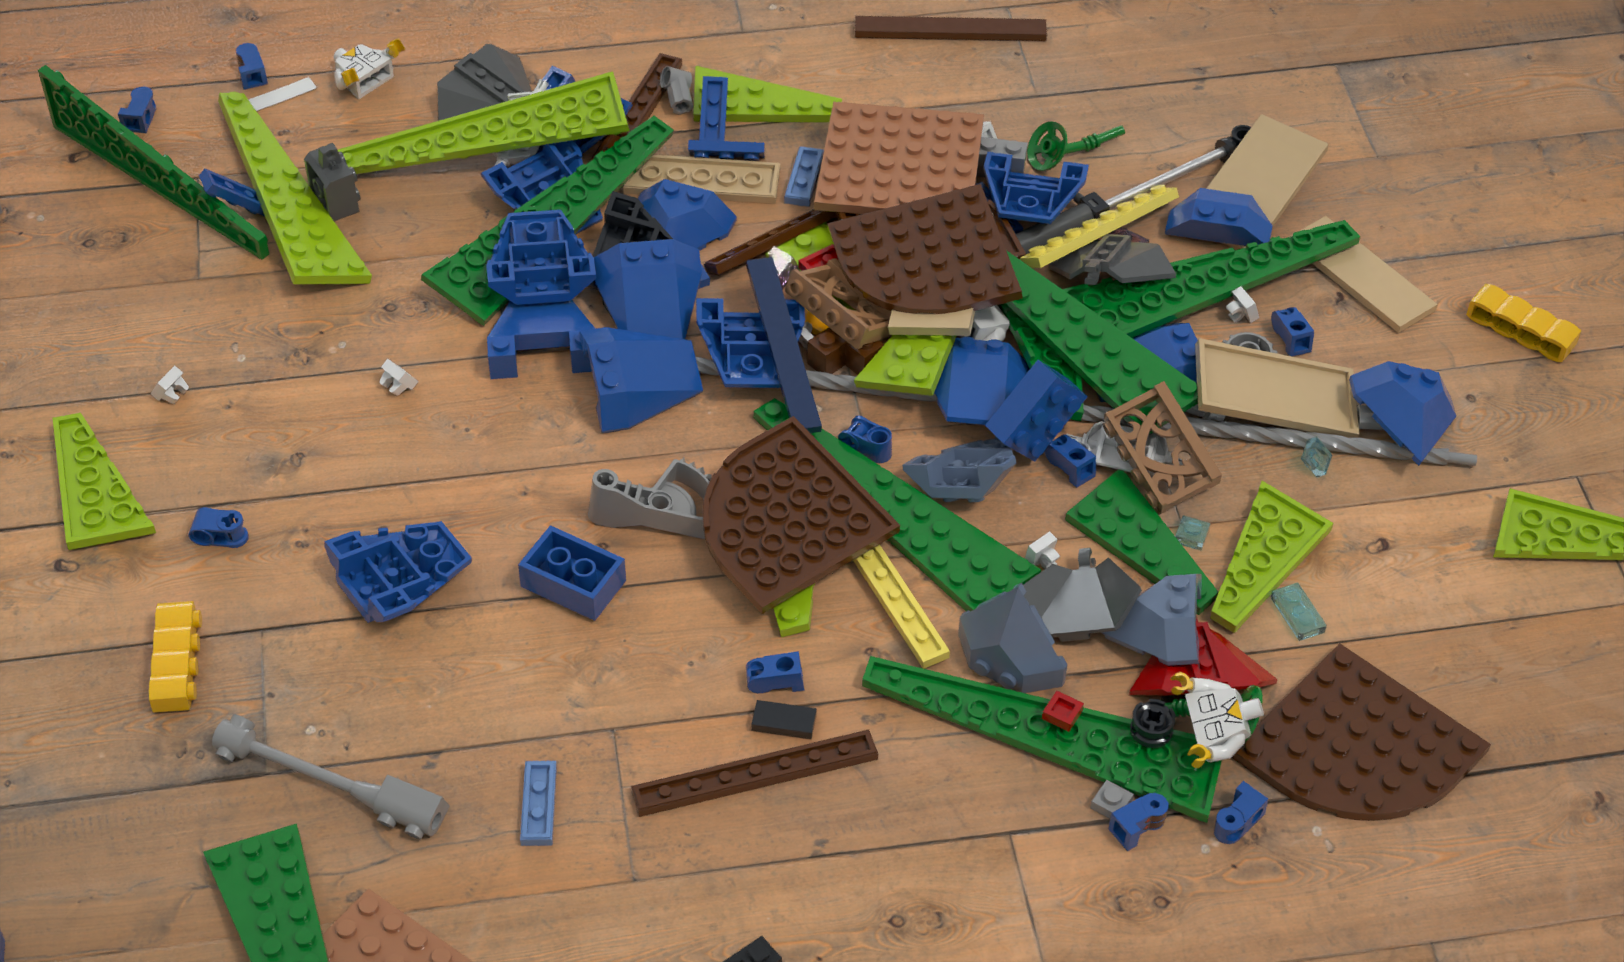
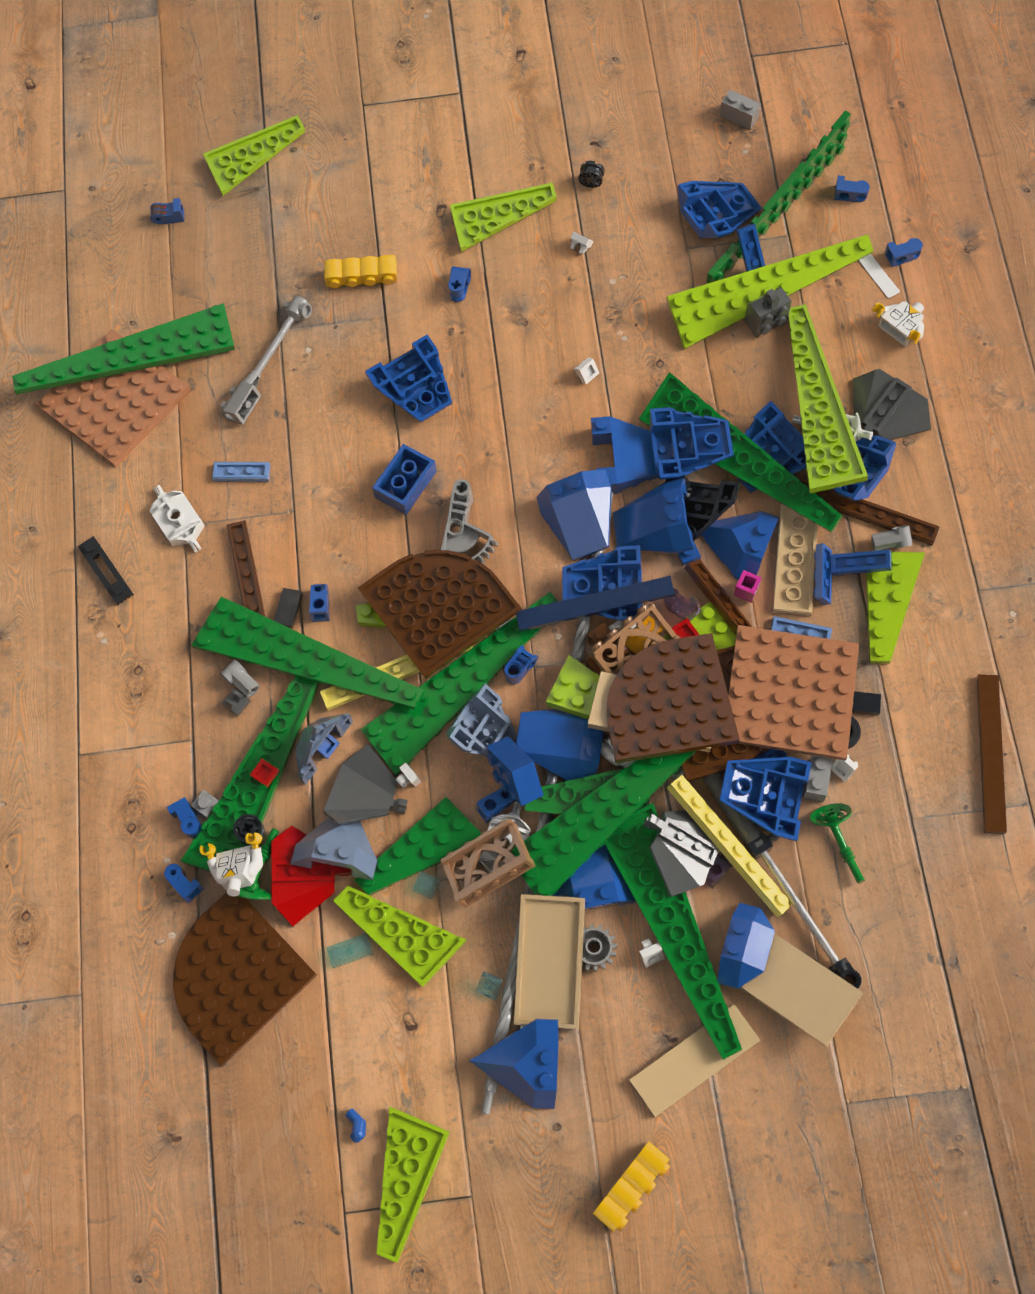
camera: 100 degrees right, 20 degrees up
(49, 371) = (591, 174): none -> black wheel
(147, 237) = (716, 207): none -> blue wedge
(606, 901) = (184, 528): none -> white plate
(747, 211) = (747, 586): none -> dark pink brick
(847, 740) = (264, 642): none -> green wing
(903, 773) = (237, 676): none -> light grey piece
(944, 775) = (236, 702): none -> dark grey tile
(1293, 330) = (625, 988): blue leg -> none
(1524, 586) = (359, 1125): none -> blue arm

